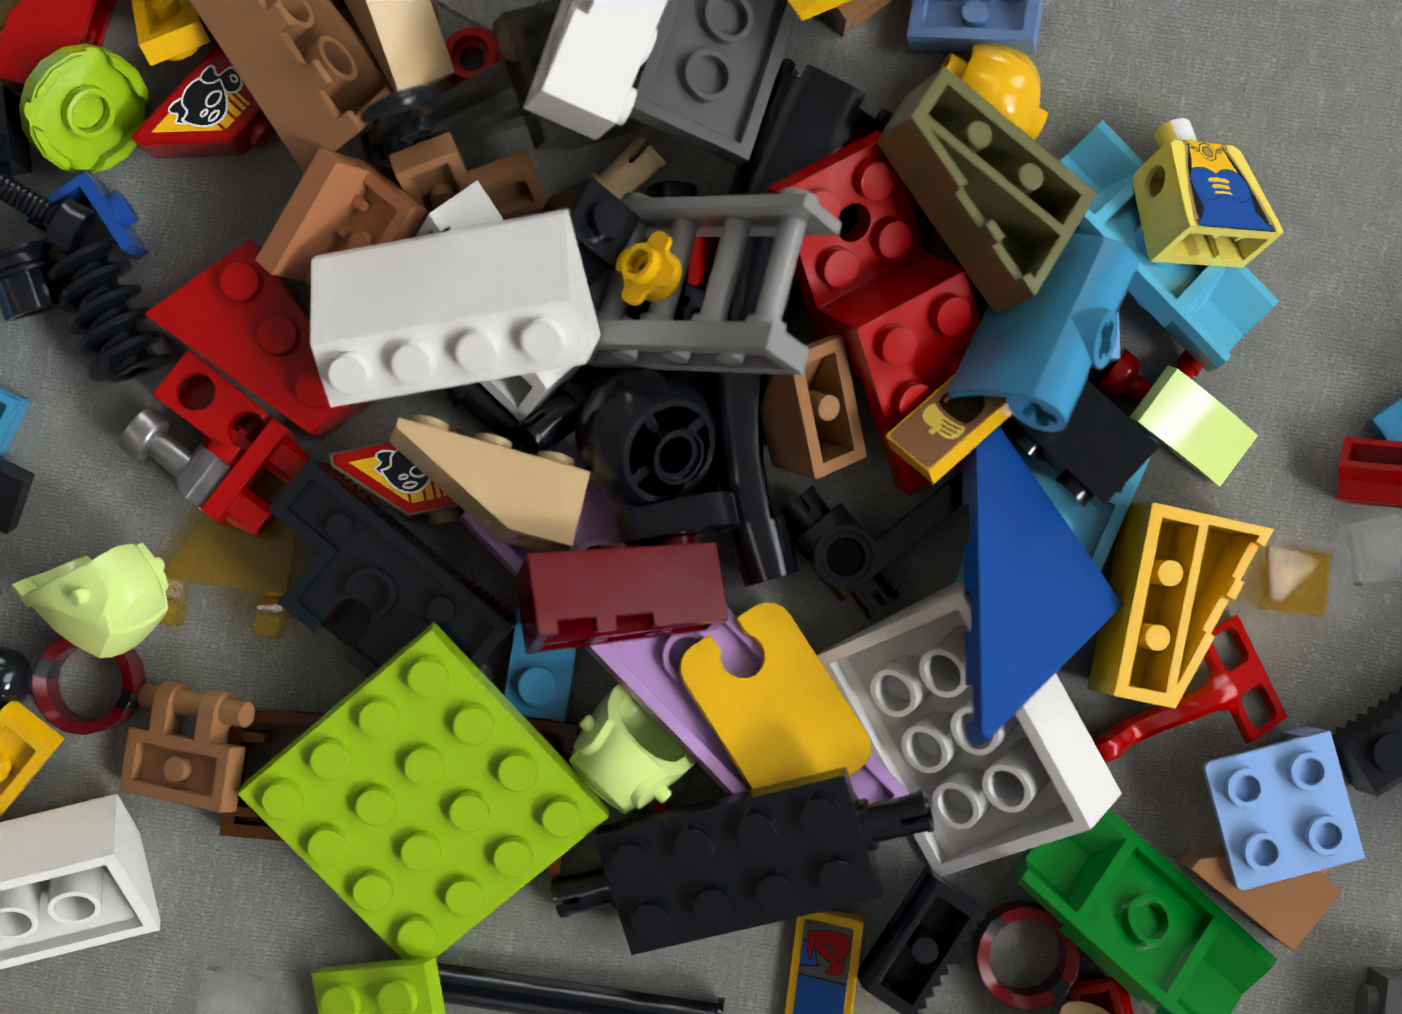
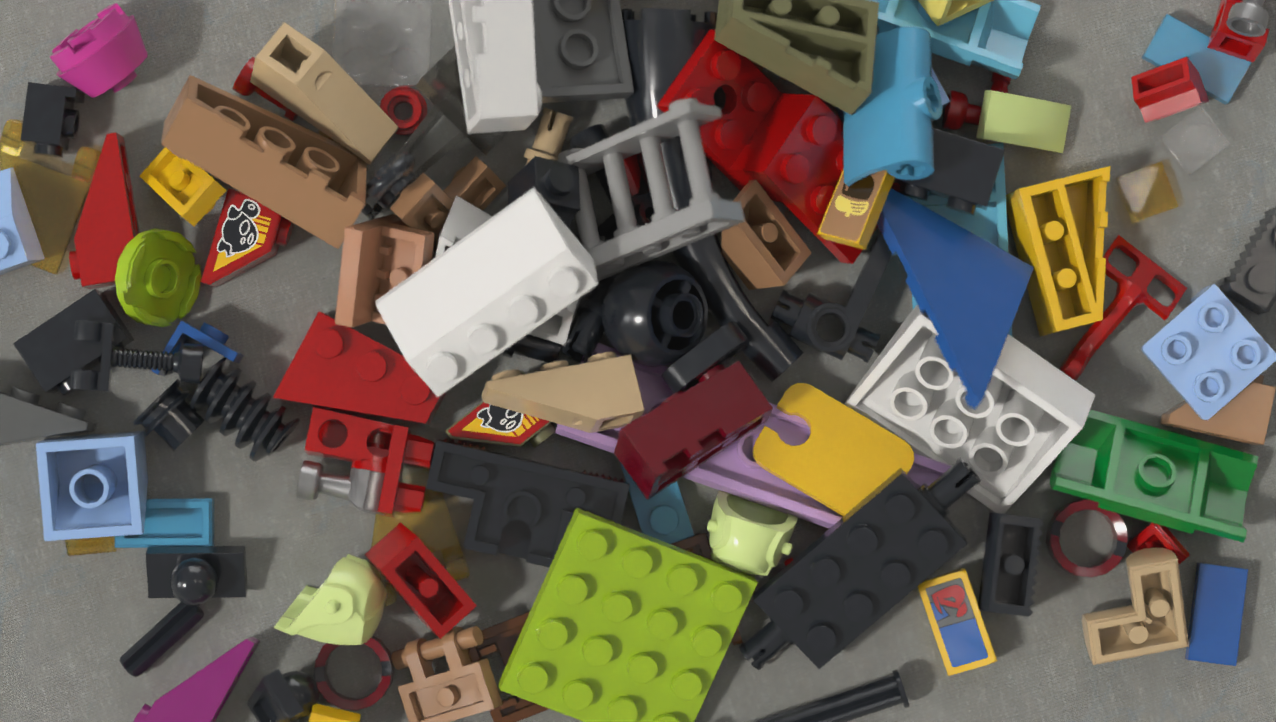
camera: 30 degrees left, 0 degrees up
(211, 616) = (420, 580): none -> red brick
(649, 270) = (605, 200): yellow plate -> none

